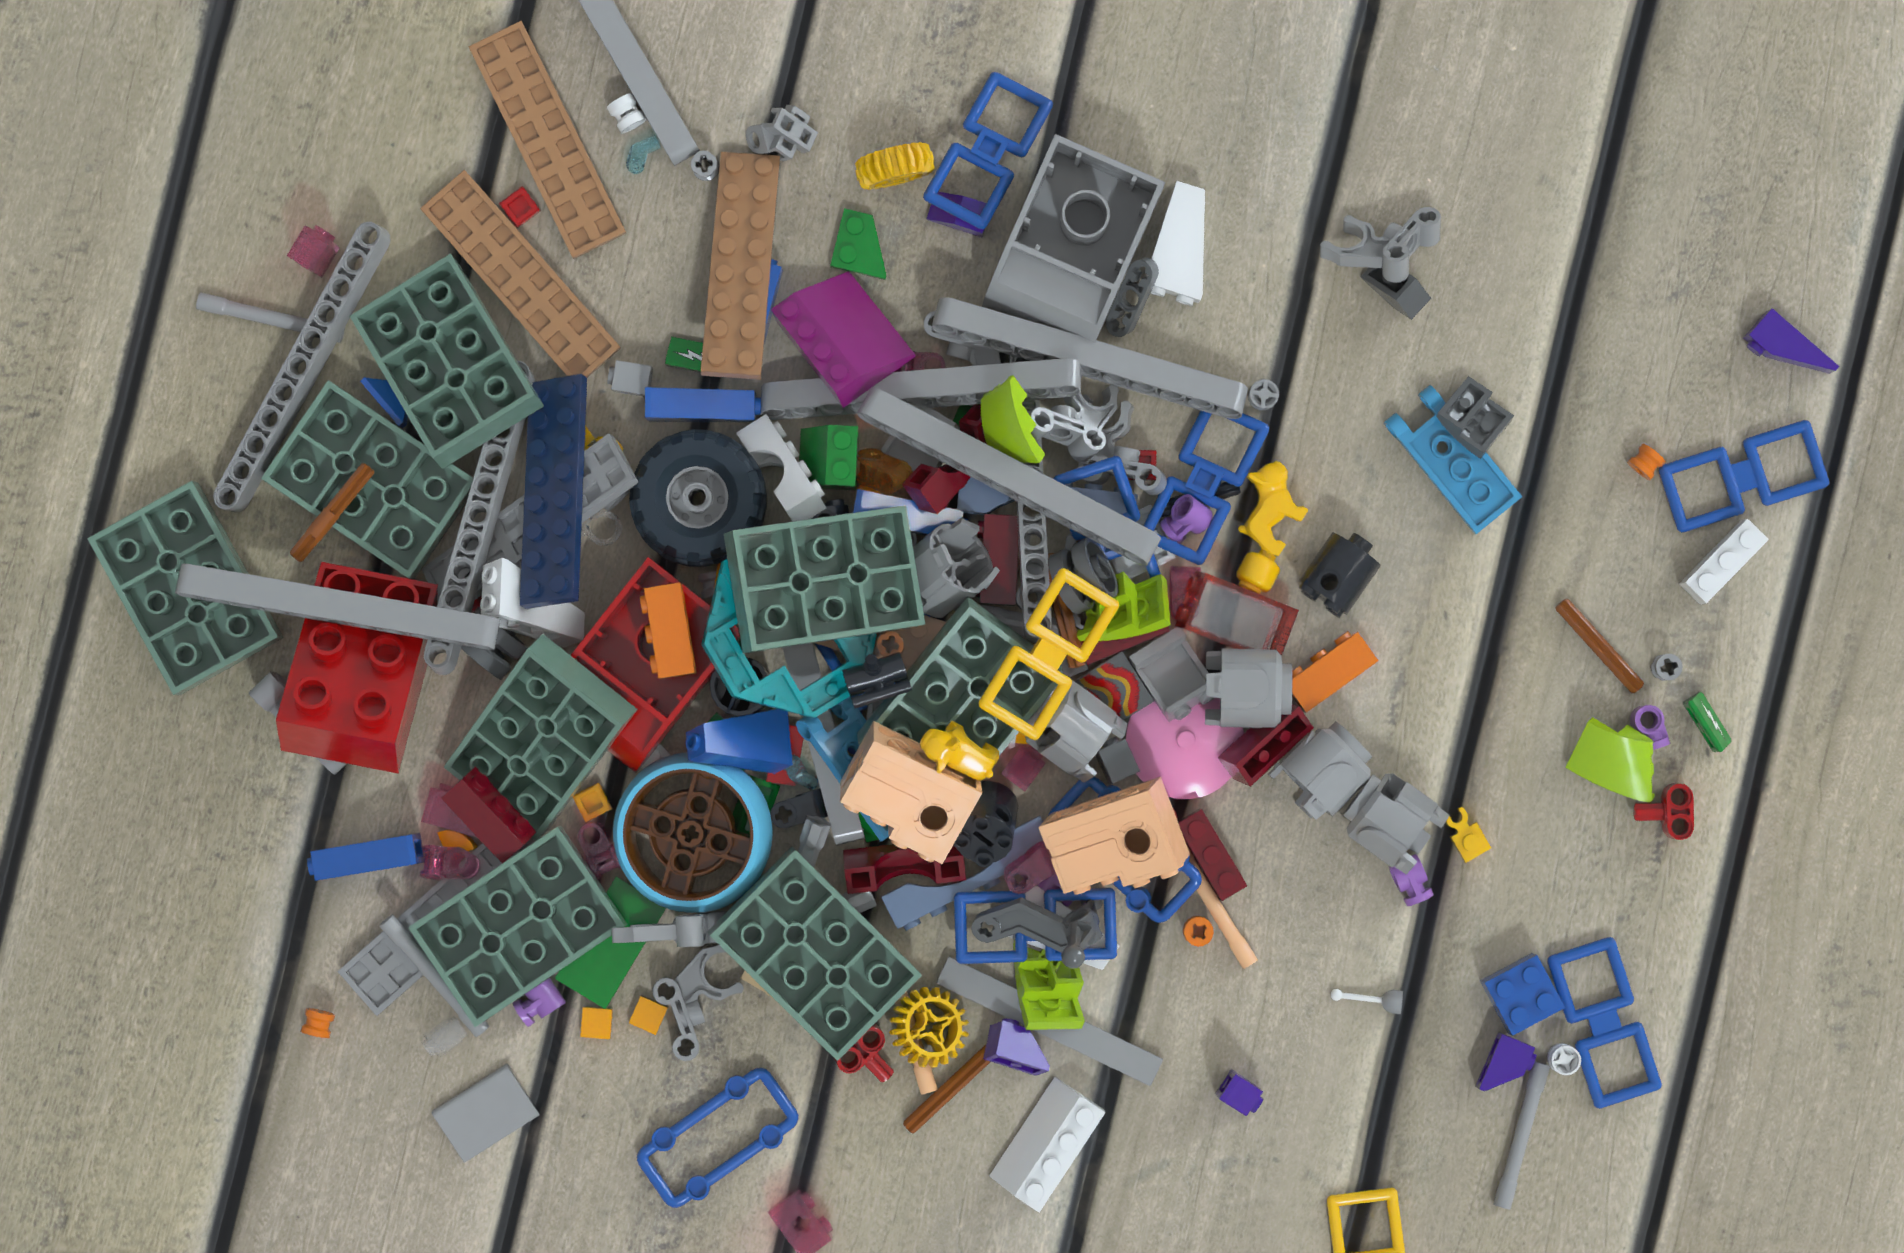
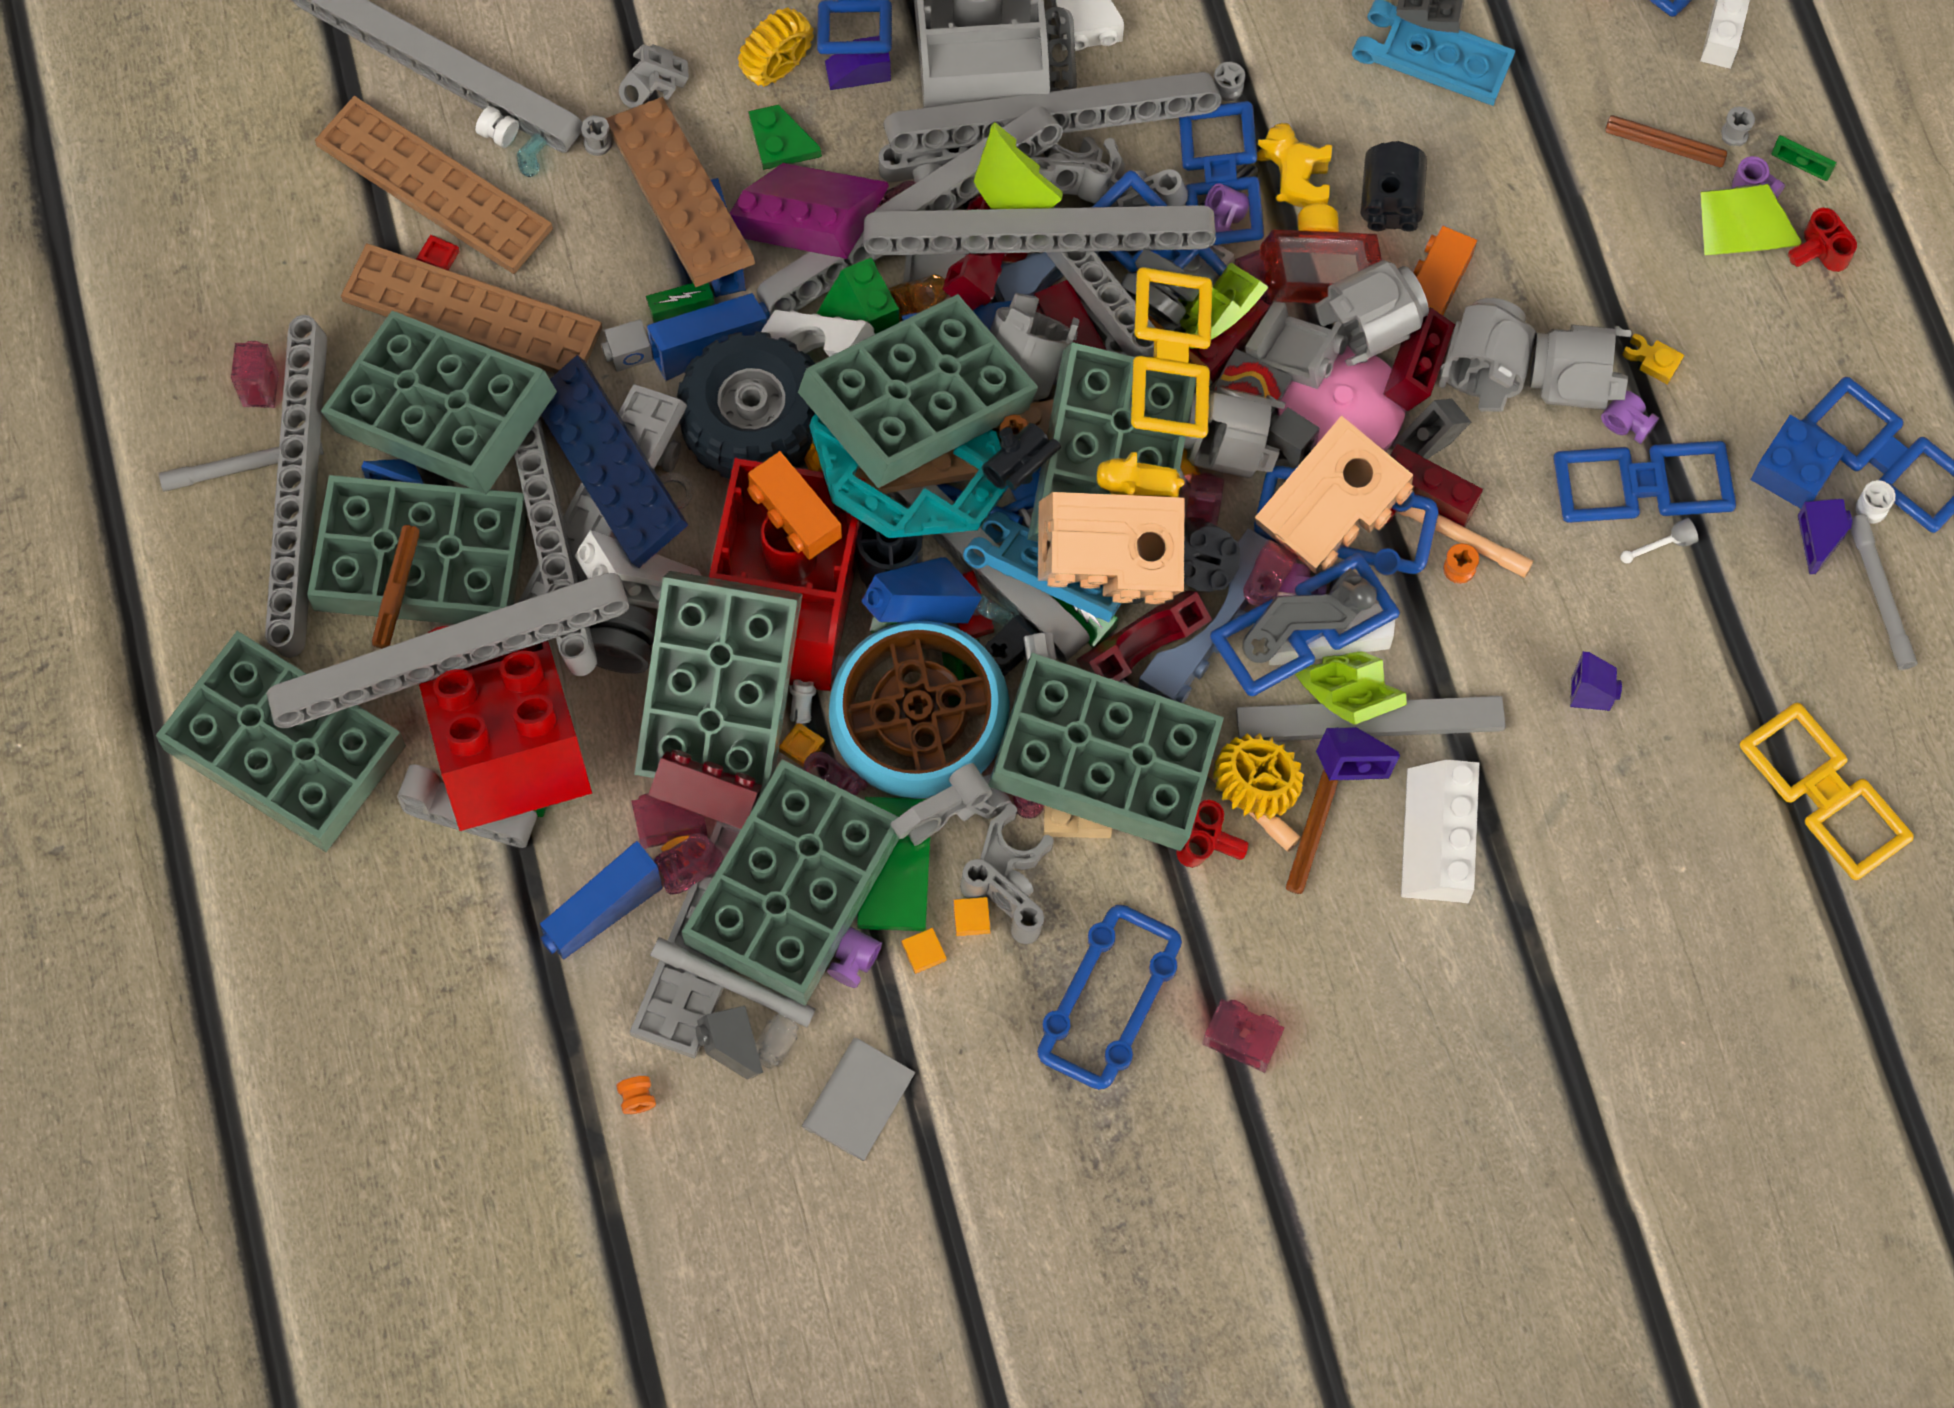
camera: 30 degrees left, 20 degrees down
(407, 1020) = (730, 1041): none -> dark grey slope
(609, 769) = (801, 701): none -> white pin
(1242, 806) = (1434, 428): none -> dark grey slope
(1391, 938) = (1644, 481): none -> blue bar

